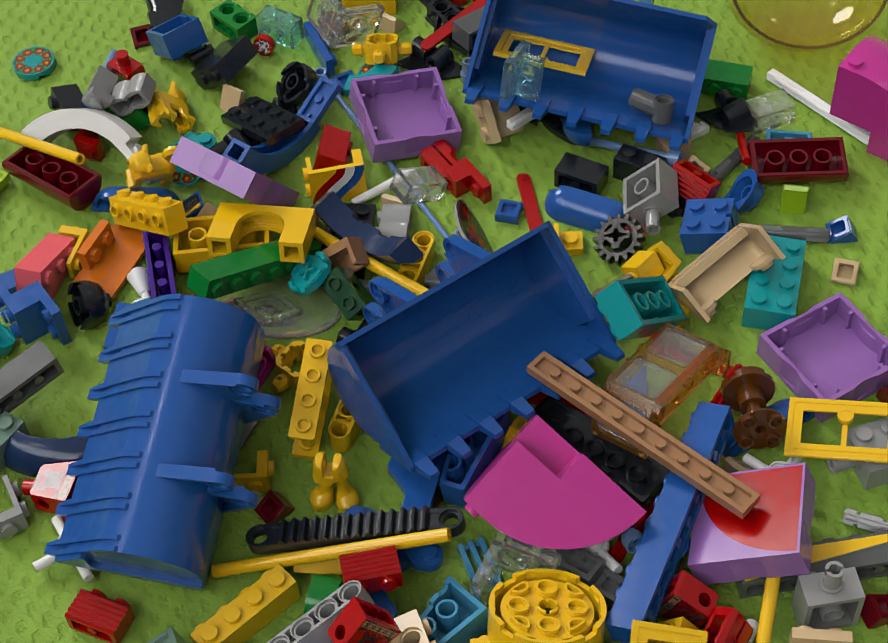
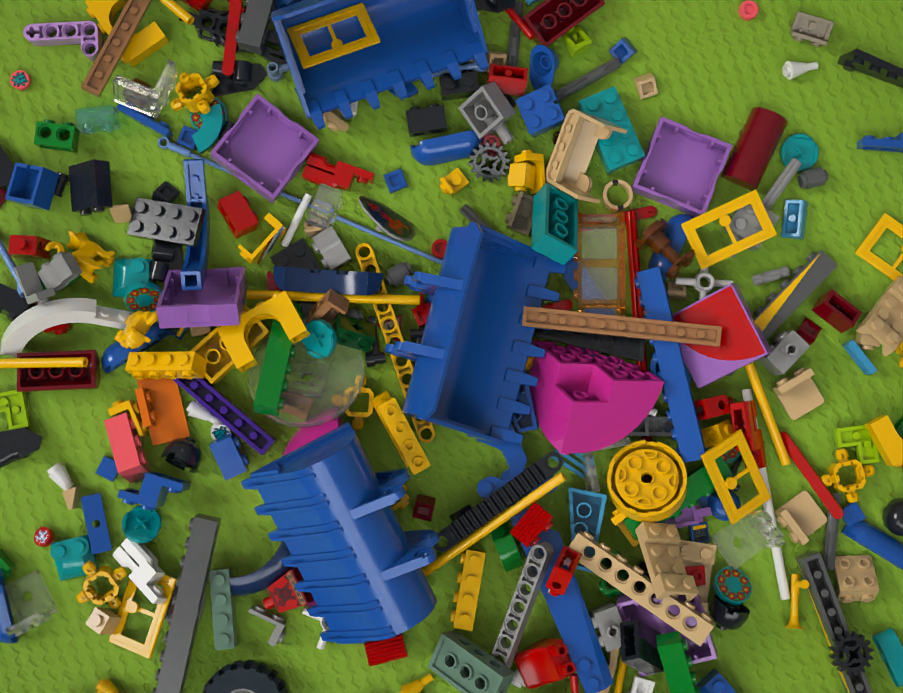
camera: 45 degrees left, 35 degrees up
(264, 44) = (99, 144): red tile -> none
(296, 83) = (163, 171): black cylinder -> none
(326, 475) = (450, 476): yellow piece -> none
(391, 24) = (175, 54): tan slope -> none
(522, 74) = (347, 83): clear light blue bracket -> none
(529, 201) = (417, 176): red piece -> none
(657, 106) = (445, 38): dark grey piece -> none
(744, 332) = (607, 204): none -> tan piece

